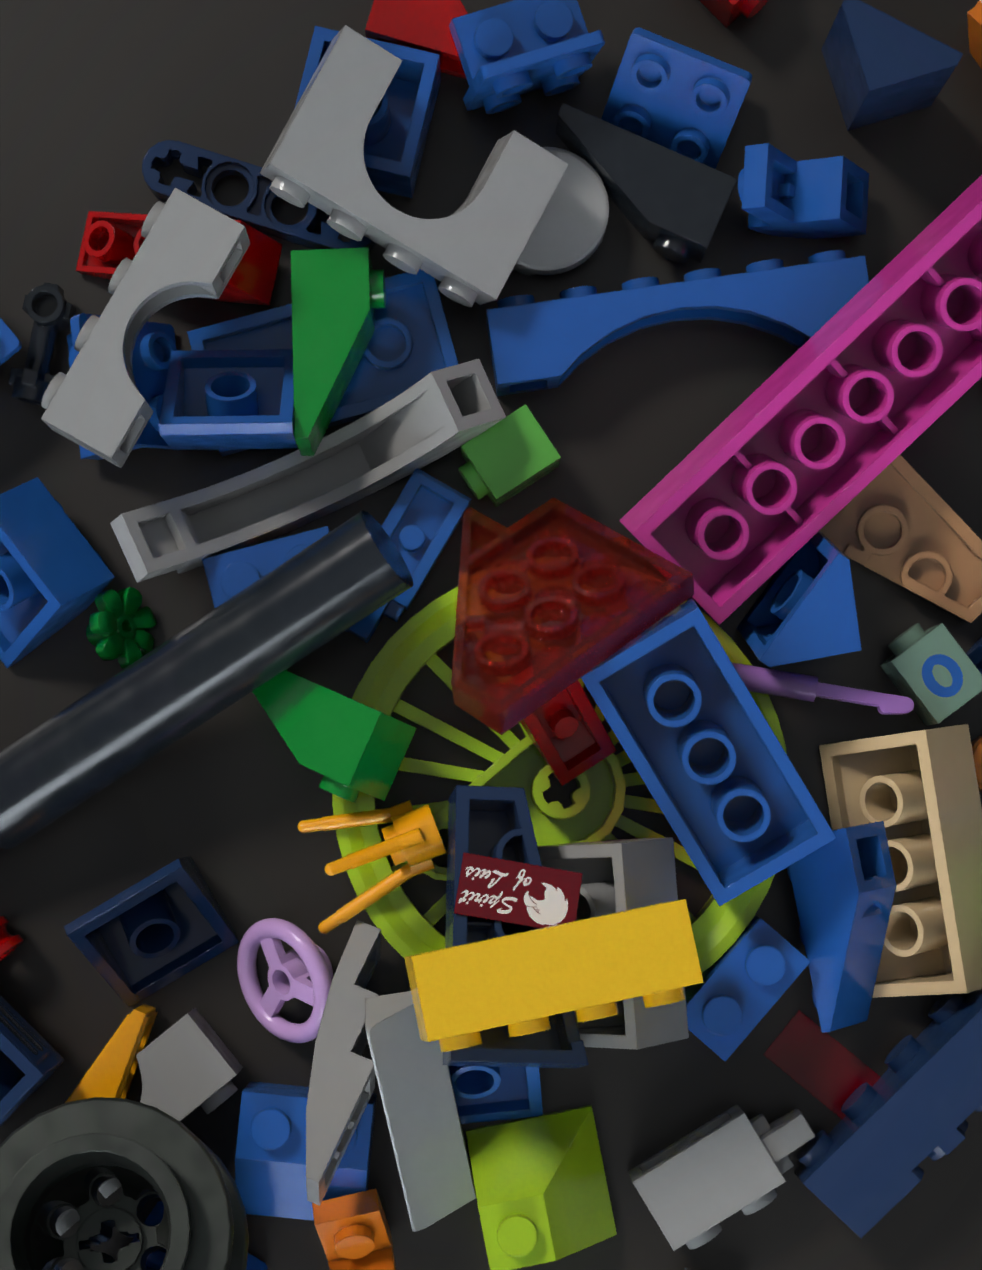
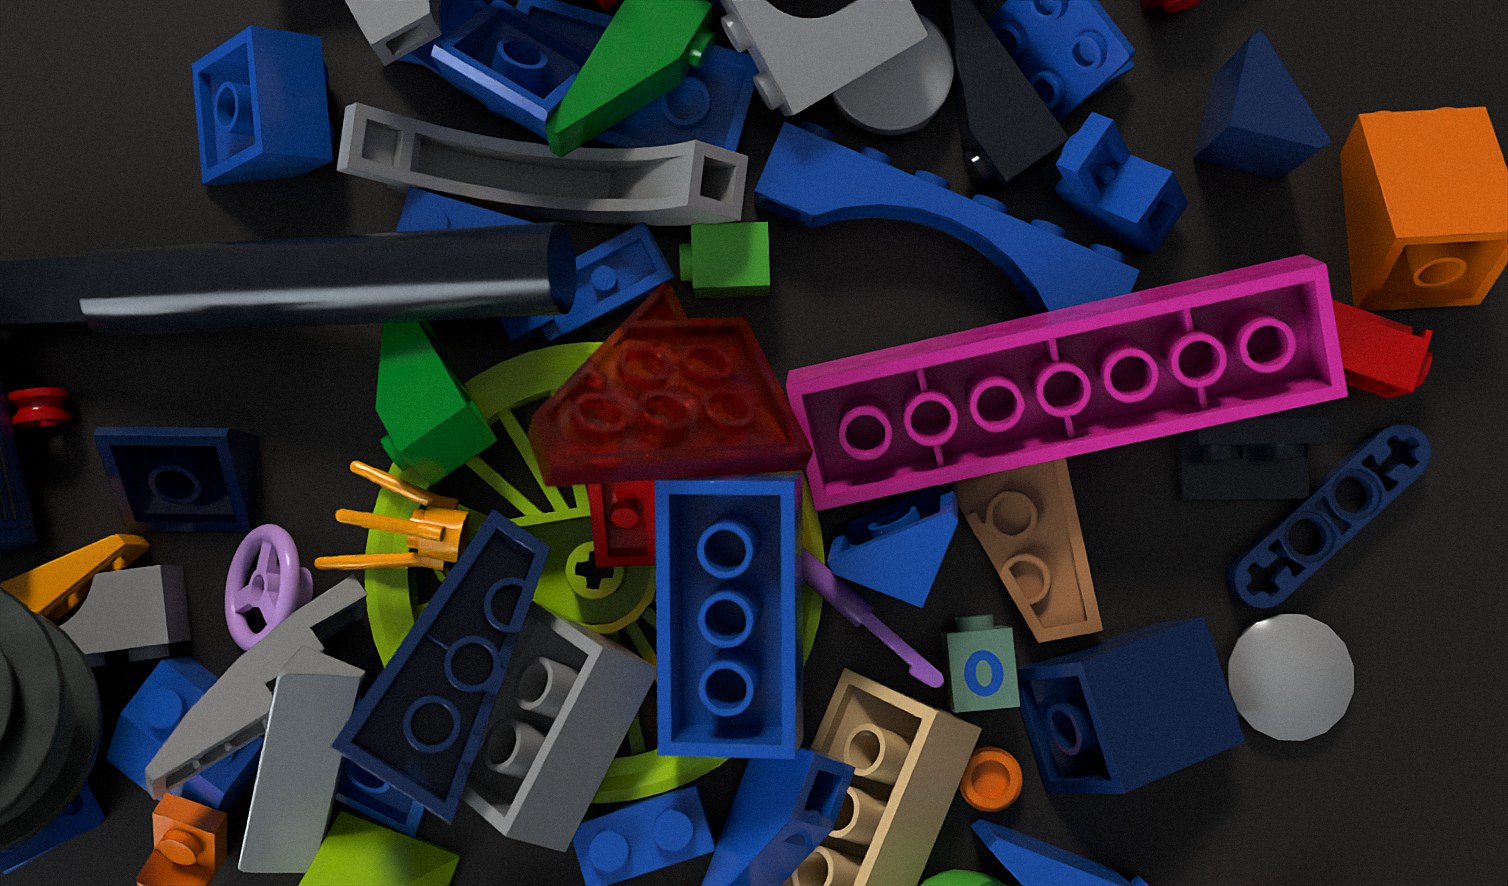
camera: 35 degrees right, 0 degrees up
(121, 626) = (314, 203): green plant -> none
(516, 892) = (485, 635): dark red sticker -> none
(553, 971) = (463, 723): yellow brick -> none

